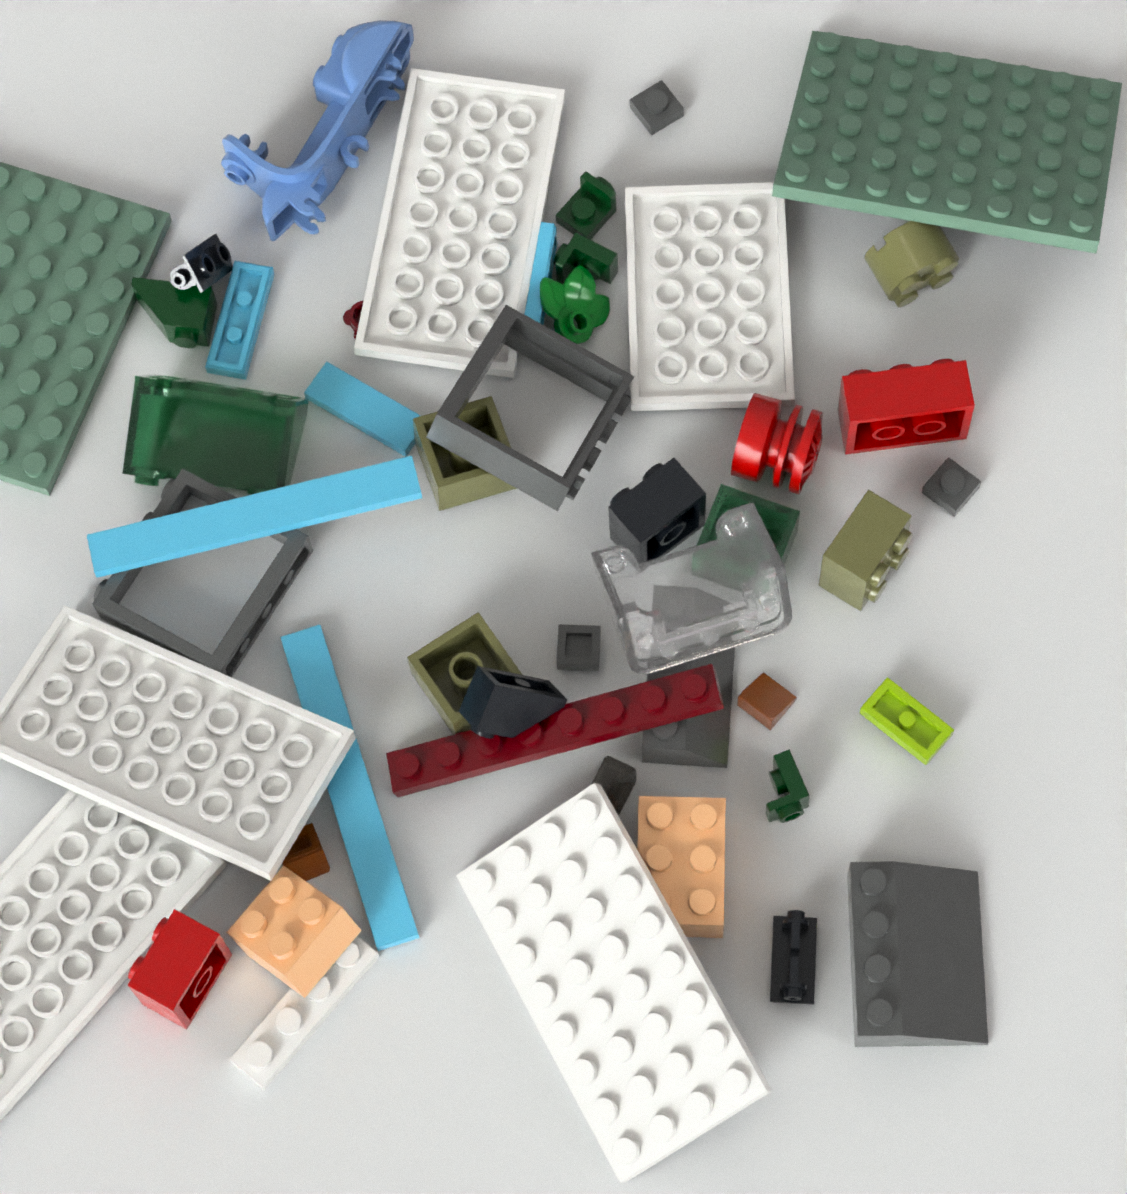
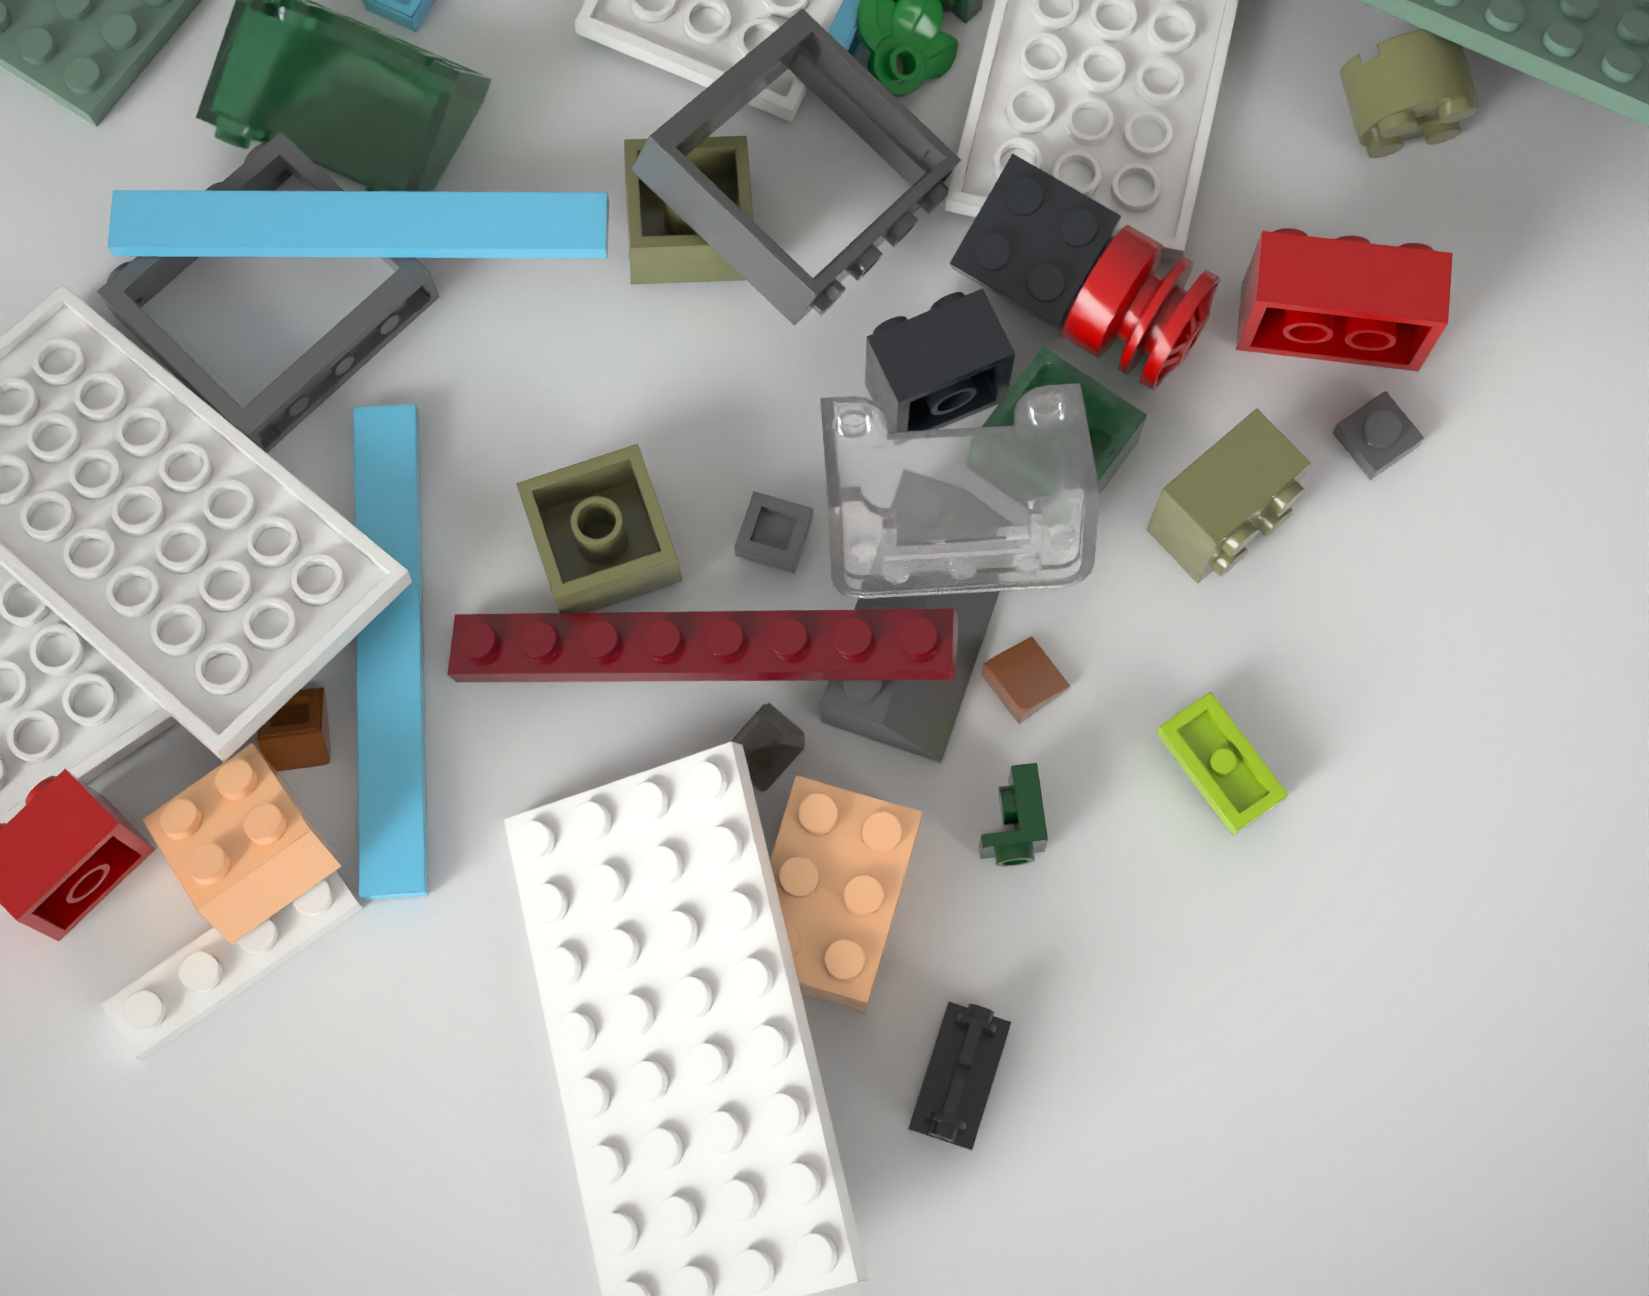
camera: 10 degrees right, 5 degrees up
(363, 408) = (565, 111): medium azure tile -> none
(508, 702) = (641, 588): black slope -> none
(697, 418) = (1035, 241): none -> black brick
(916, 955) = (1142, 1119): dark grey slope -> none

